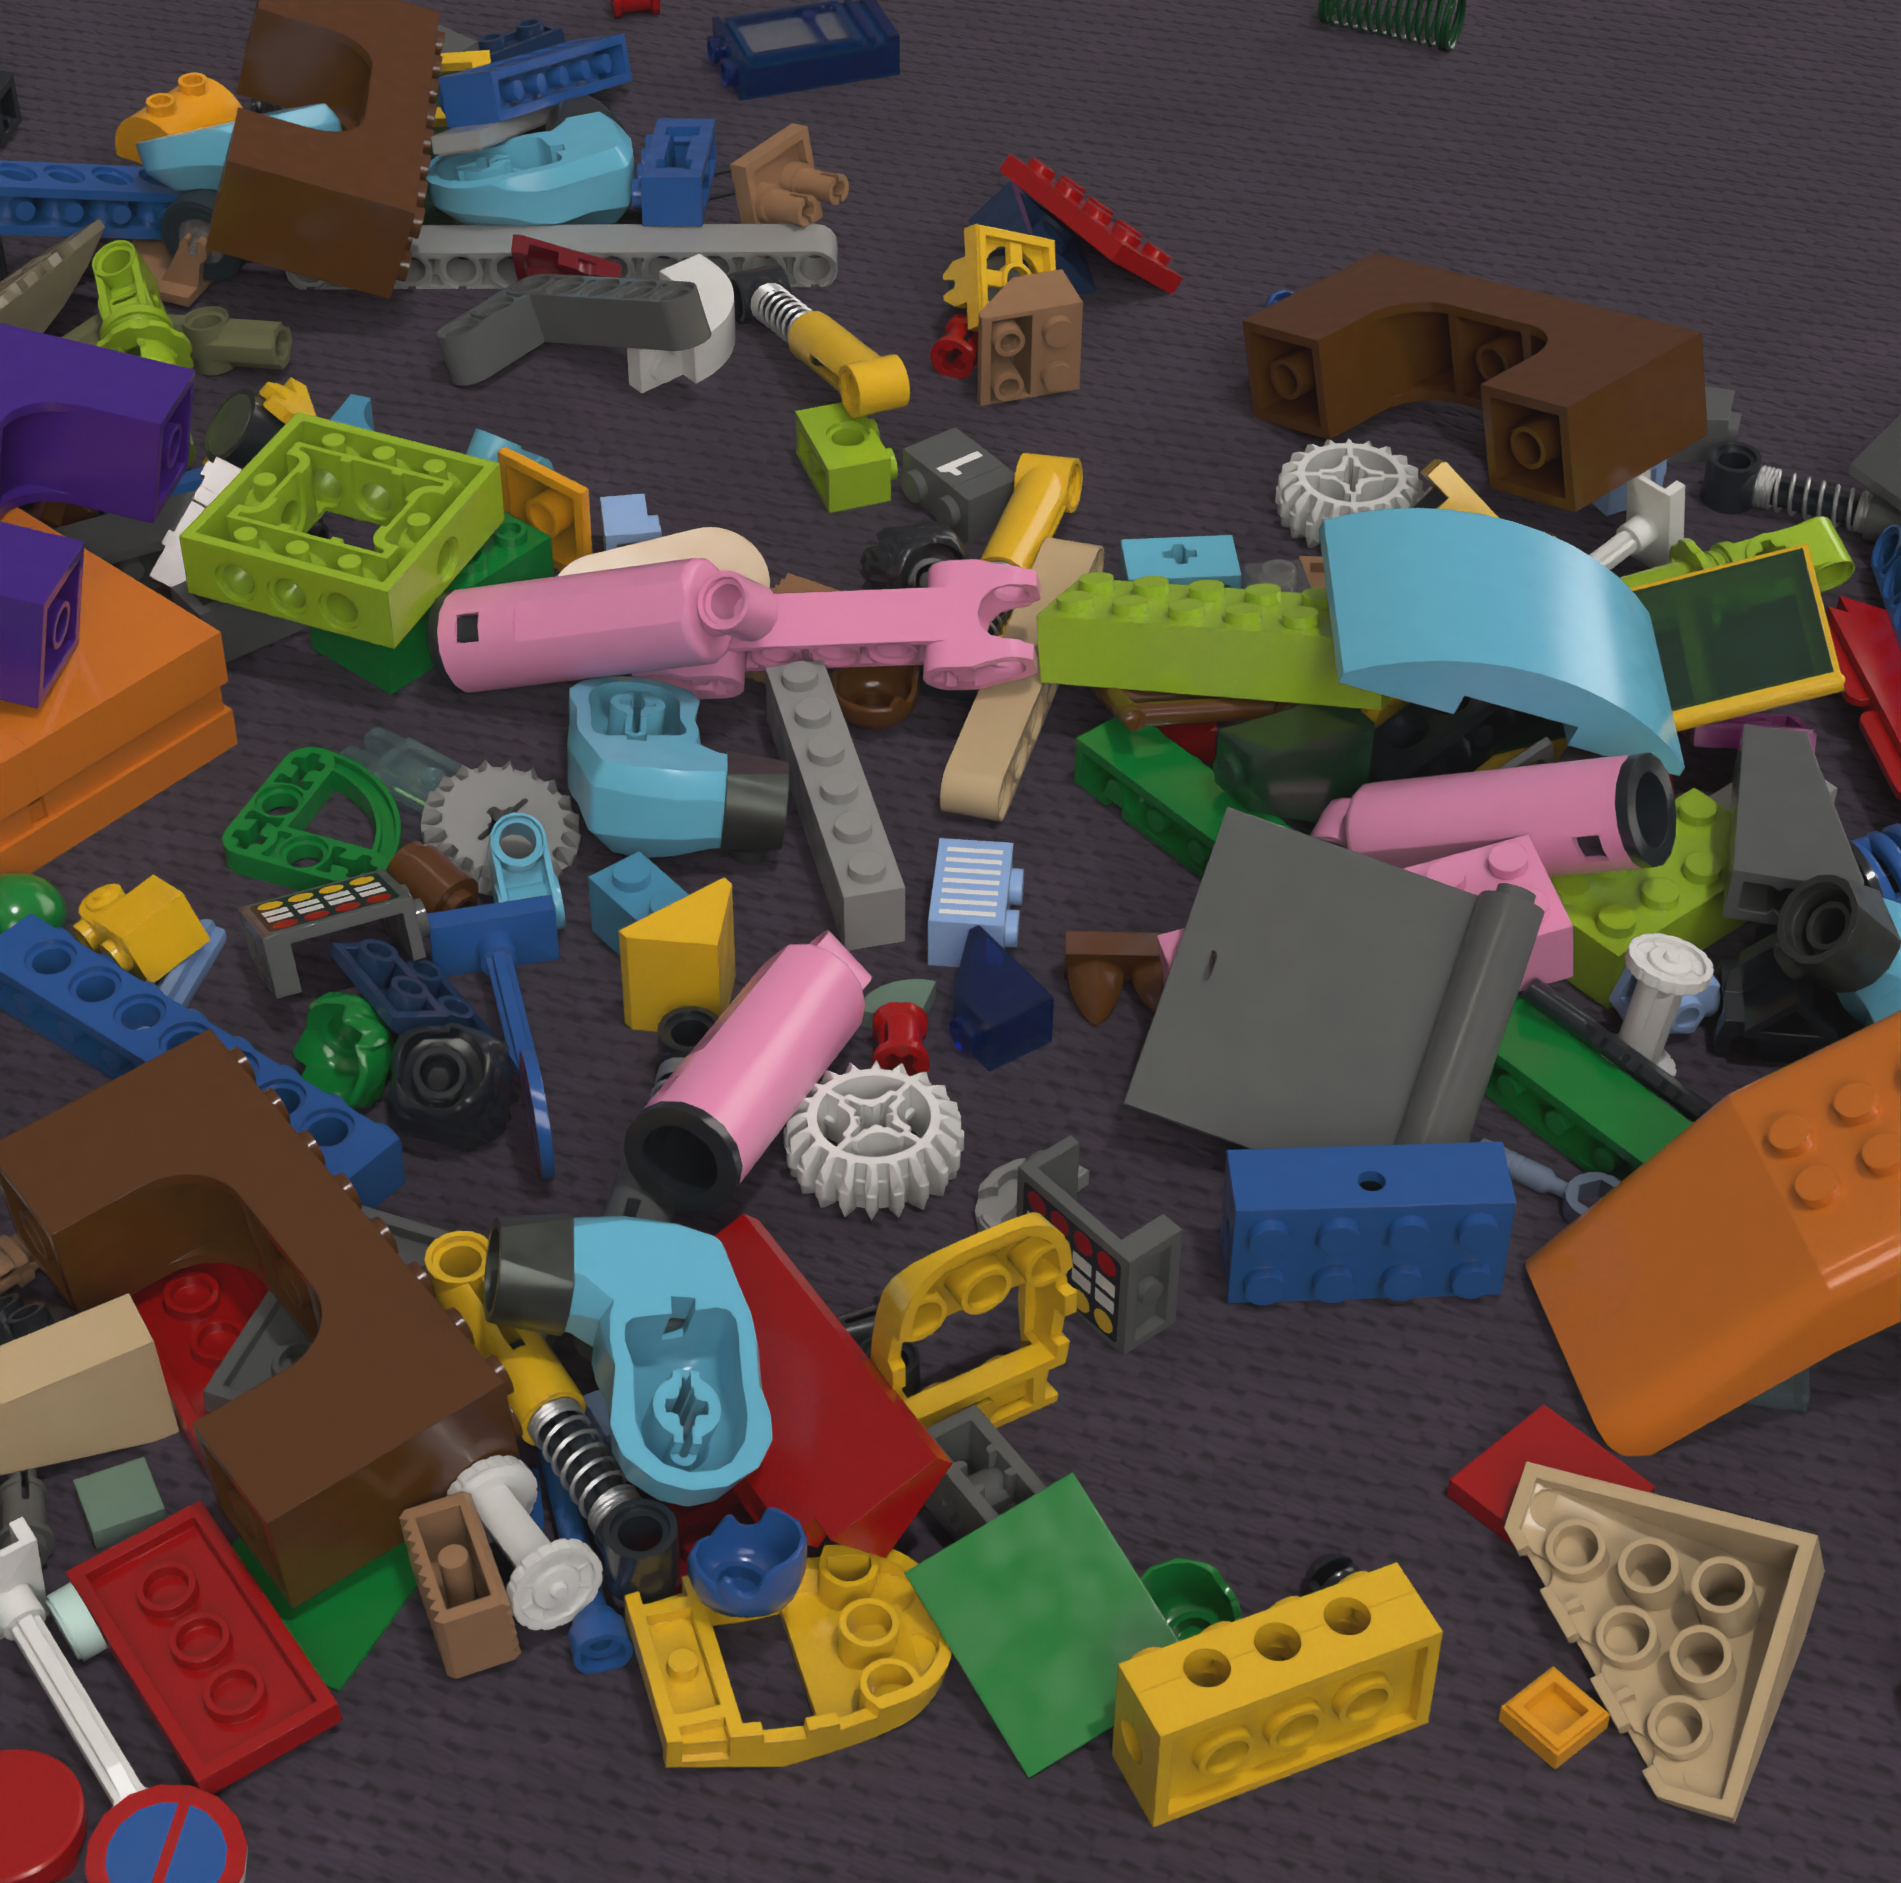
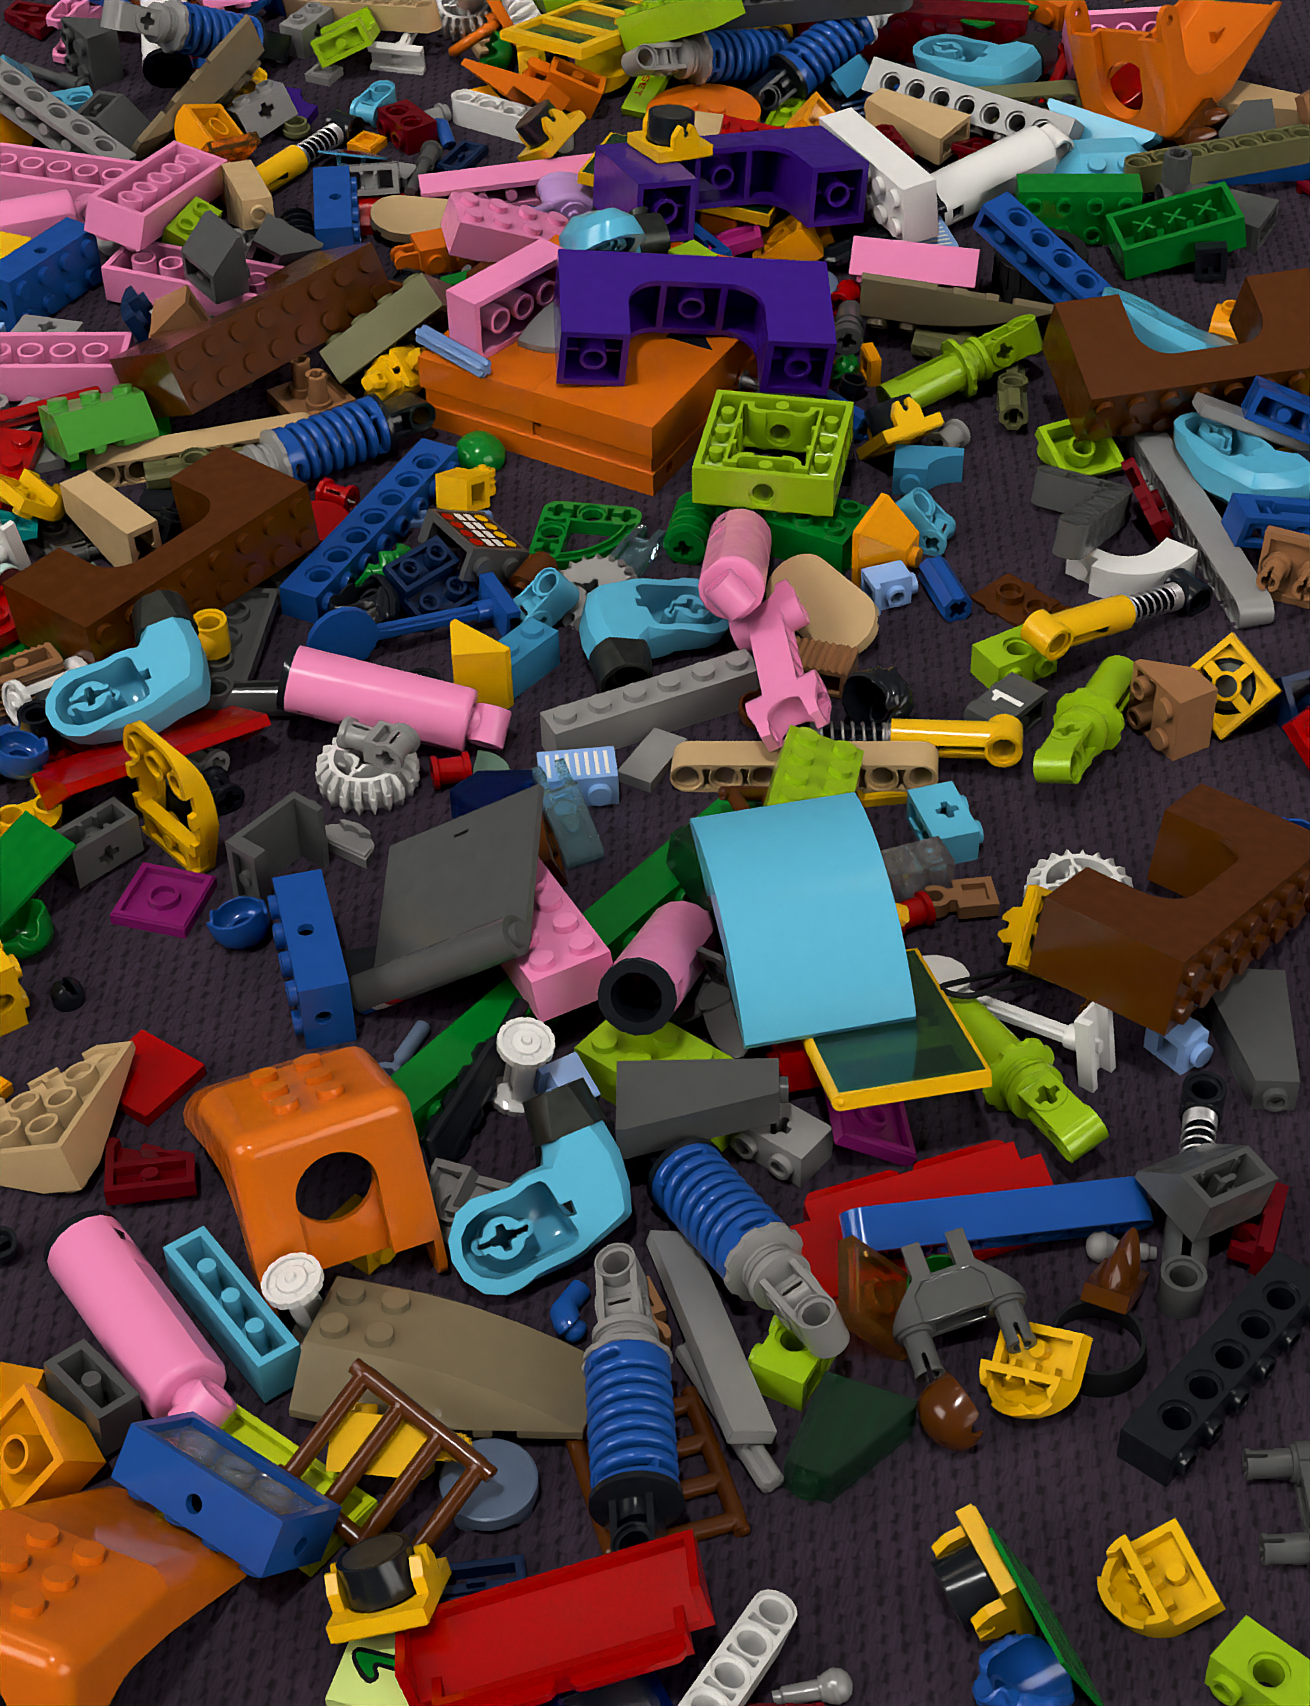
camera: 80 degrees right, 0 degrees up
(61, 1088) = (345, 496): none -> red bush
(390, 697) = (689, 530): none -> green piece
(404, 322) = (1060, 449): none -> lime slope
(665, 486) = (945, 589): none -> blue axle
(703, 440) = (1014, 600): none -> reddish brown piece
(880, 1072) = (379, 742): none -> light grey connector
(918, 822) = (650, 760): none -> light grey tile
(1033, 411) = (1085, 724): none -> lime piece
(1063, 904) = (569, 817): none -> clear light blue hinge
(1116, 1440) = (164, 900): none -> magenta tile
(1223, 1325) = (240, 922): none -> blue hair
(1788, 1480) = (147, 1174): none -> dark red wing

